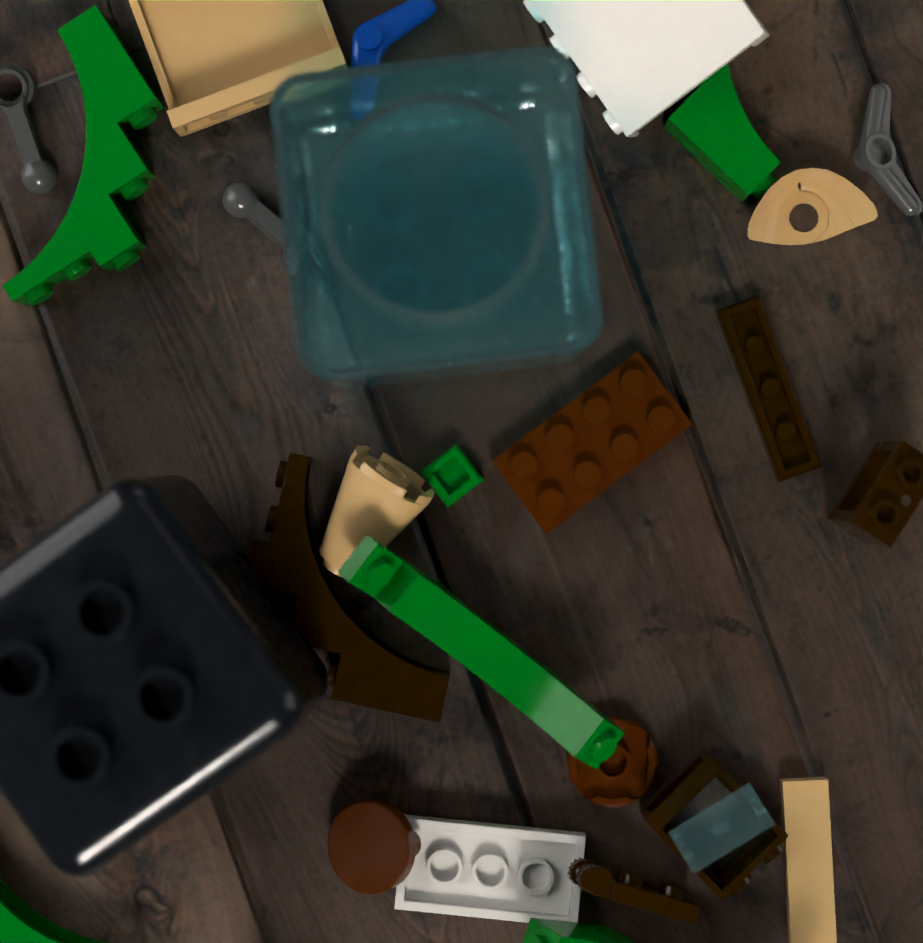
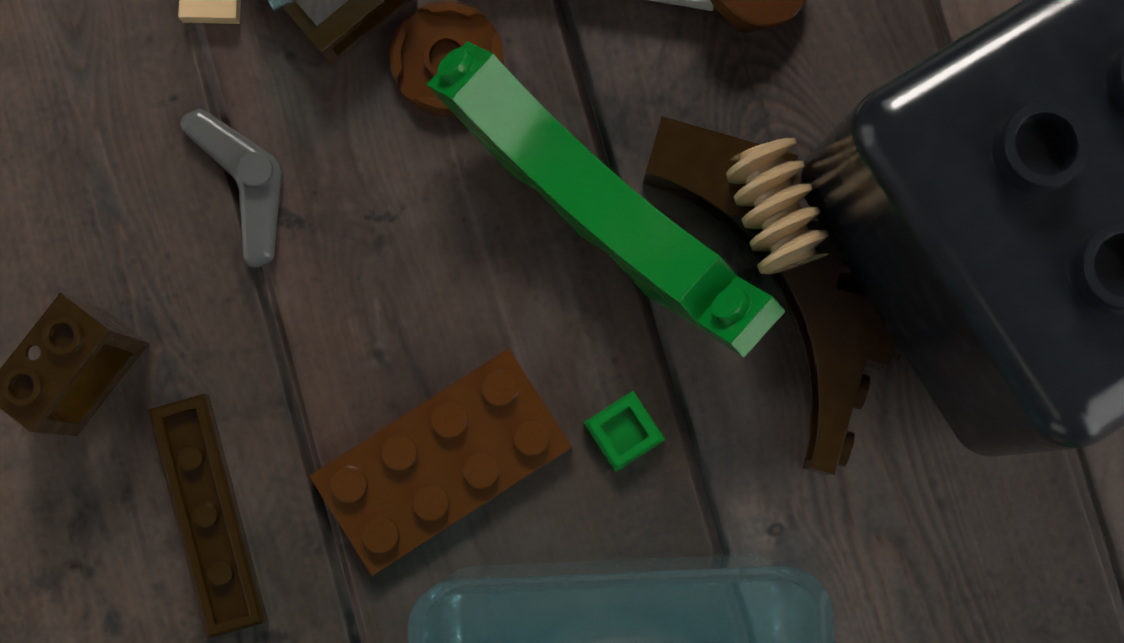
camera: 175 degrees left, 5 degrees down
(347, 655) = (776, 206): none -> tan piece
(374, 501) = (730, 401): tan cone -> none
(756, 659) = (257, 179): none -> dark grey piece

